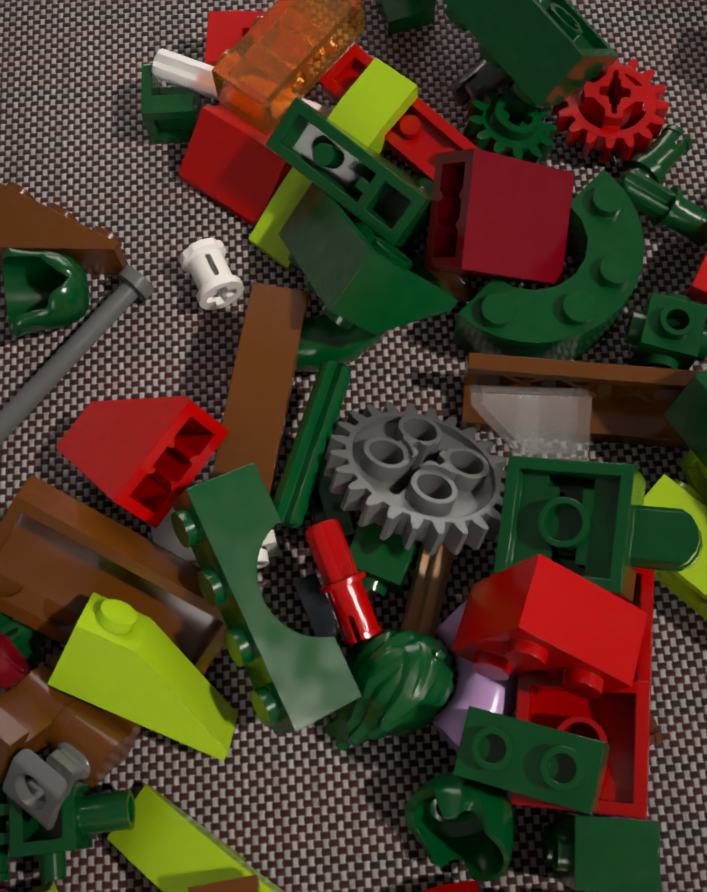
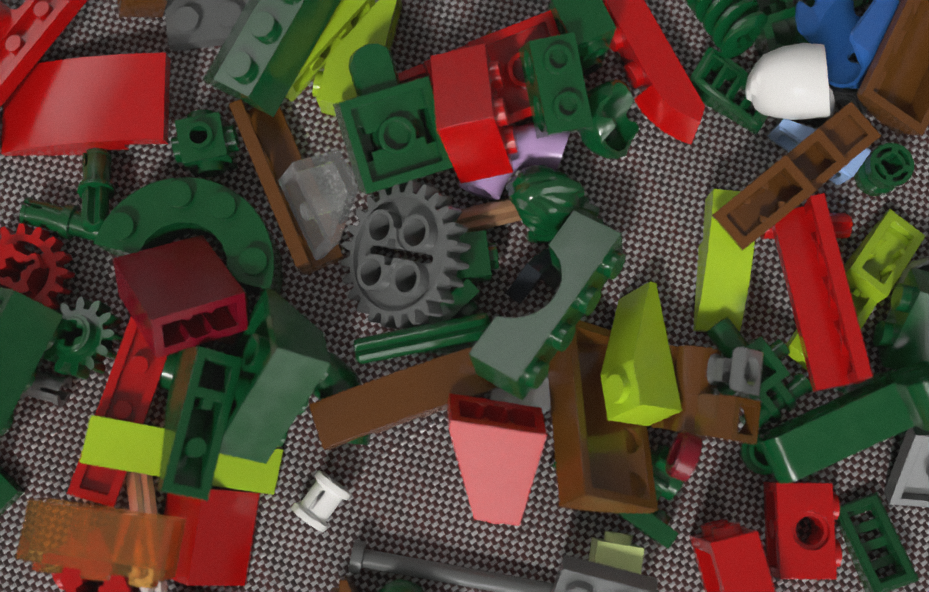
camera: 125 degrees left, 10 degrees up
(342, 581) = (506, 265): red axle -> none

